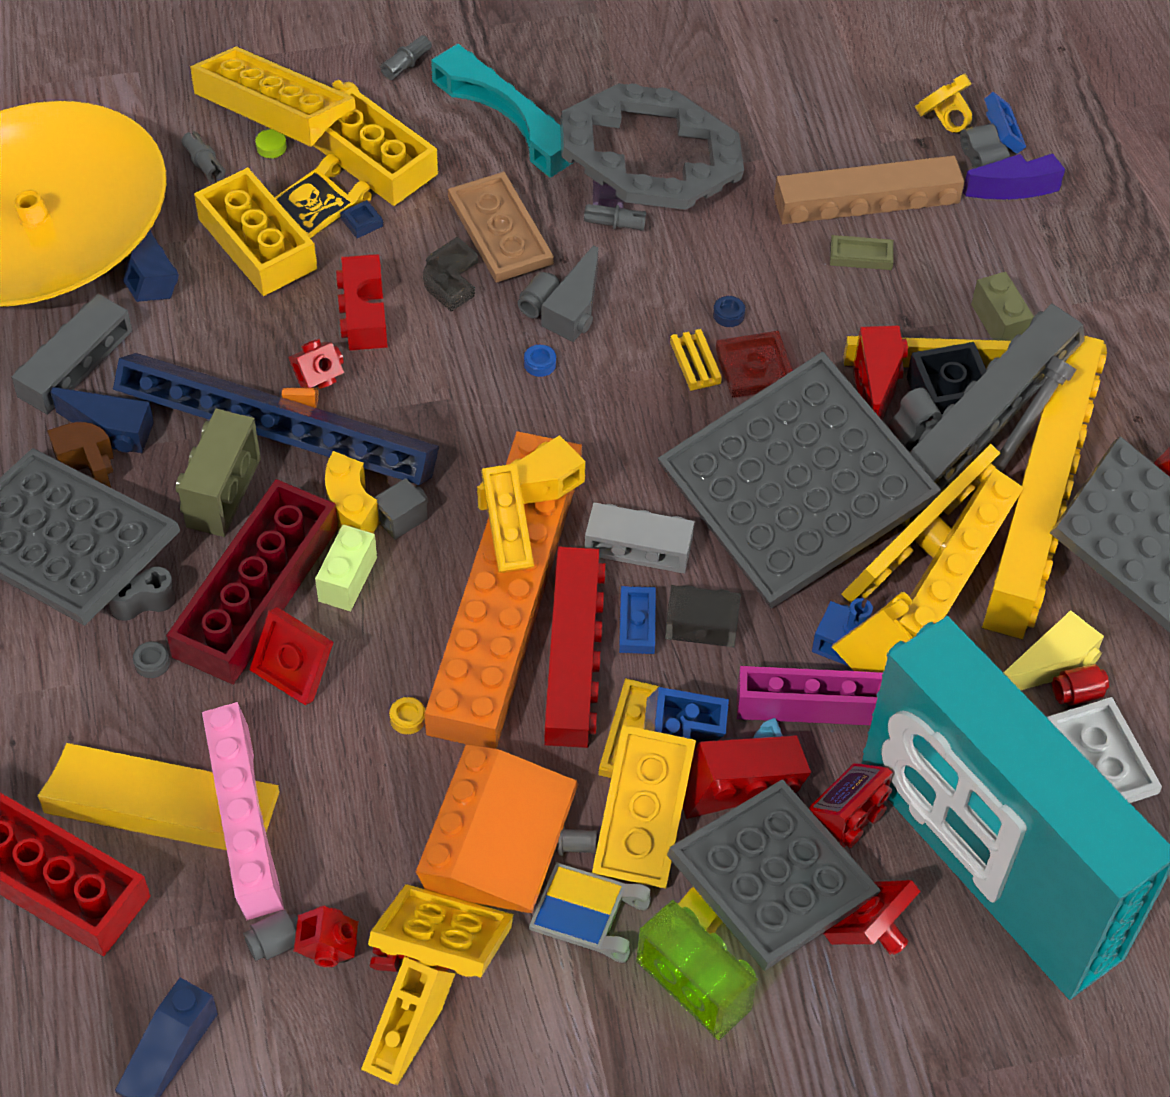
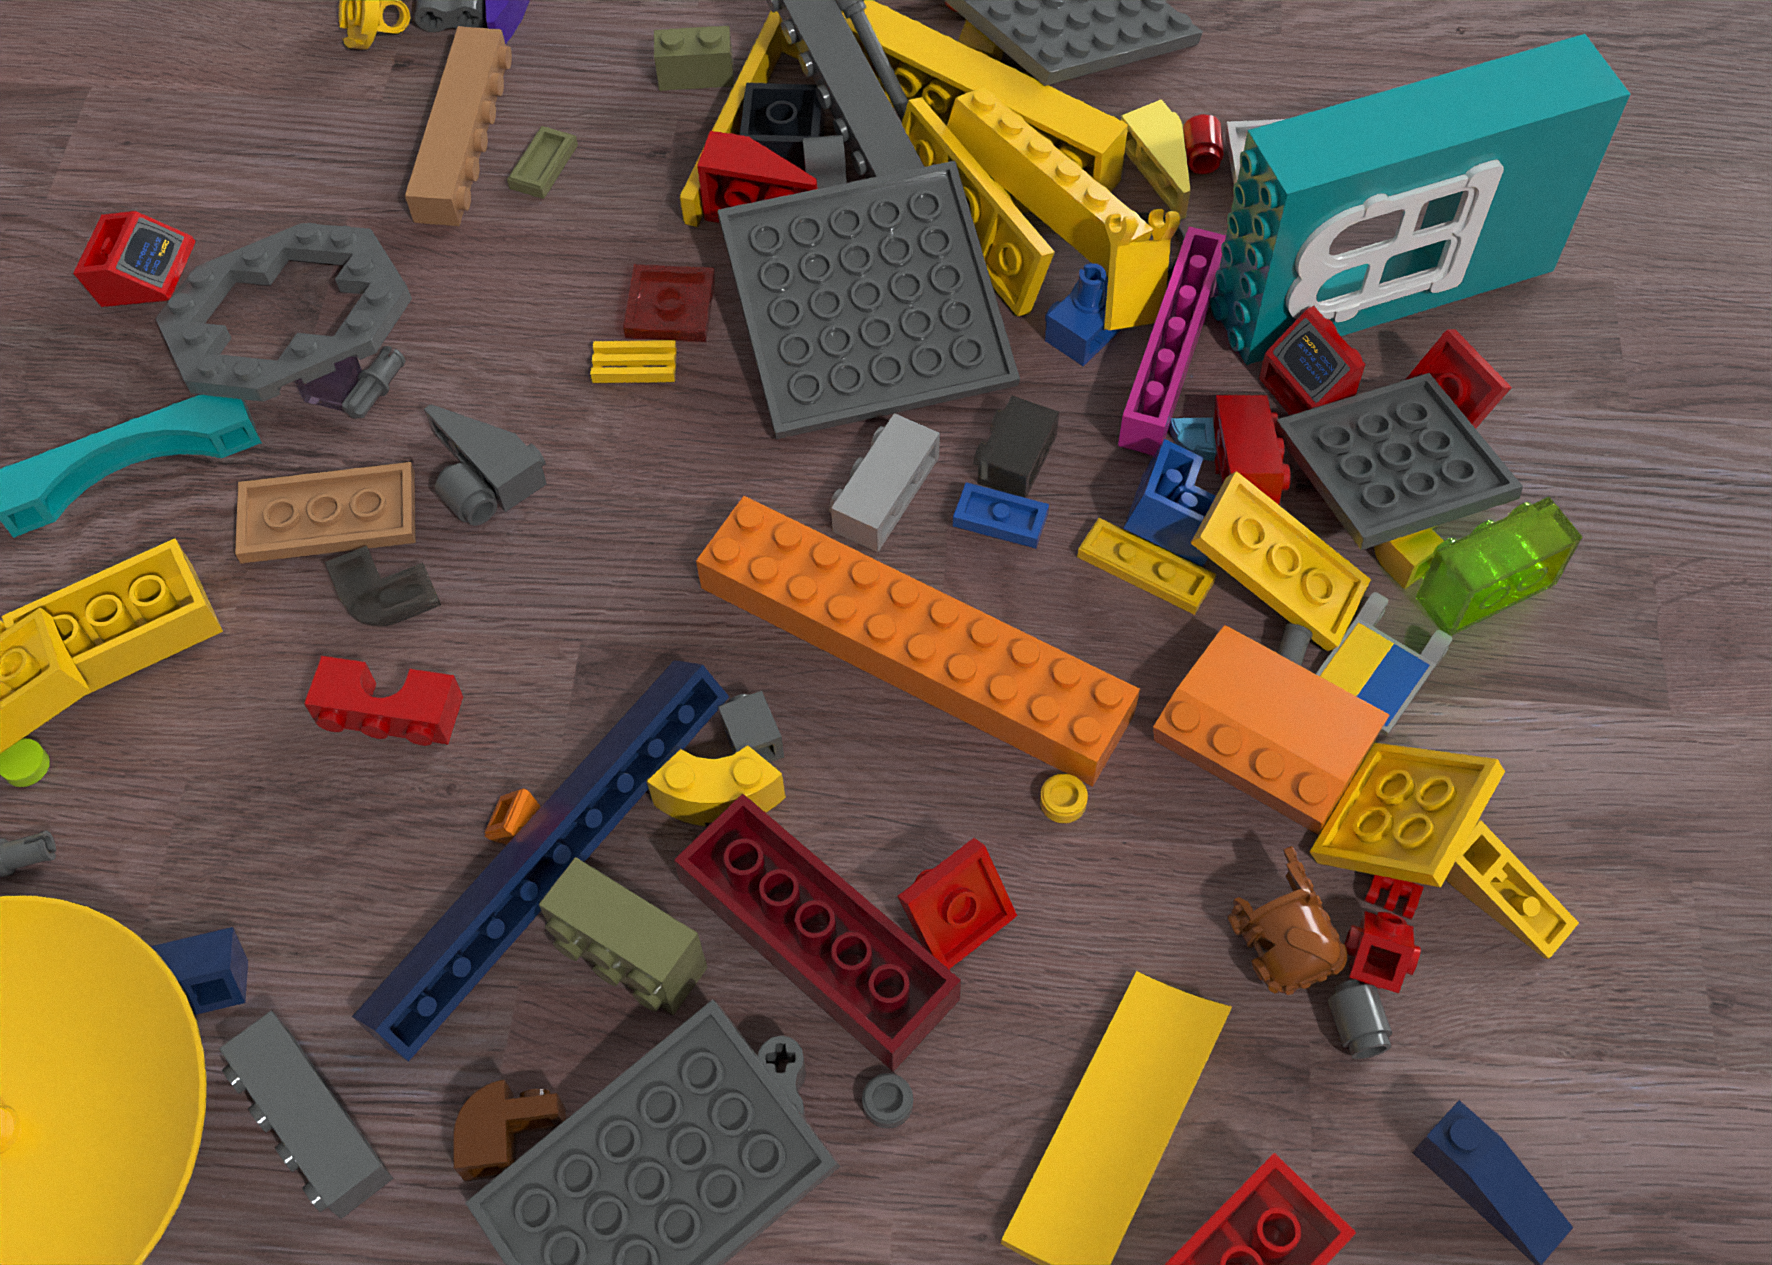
camera: 70 degrees left, 5 degrees up
(123, 419) = (461, 1064): dark blue slope -> none
(244, 832) = (1219, 1011): bright pink arch -> none
(256, 231) = (194, 808): yellow brick -> none
(317, 200) = (163, 728): flag -> none
(317, 364) = (475, 779): brick -> none
(328, 873) = (1294, 933): none -> dark orange helmet
(346, 567) = (827, 814): yellowish green brick -> none
(362, 219) = (225, 676): dark blue tile -> none
(507, 518) = (857, 586): yellow tile -> none
(540, 360) = (565, 524): blue tile -> none
(546, 473) = (795, 534): yellow slope -> none
(572, 648) = (1027, 589): red brick -> none
(660, 54) = (133, 259): none -> red slope
(729, 311) = (573, 310): dark blue tile -> none

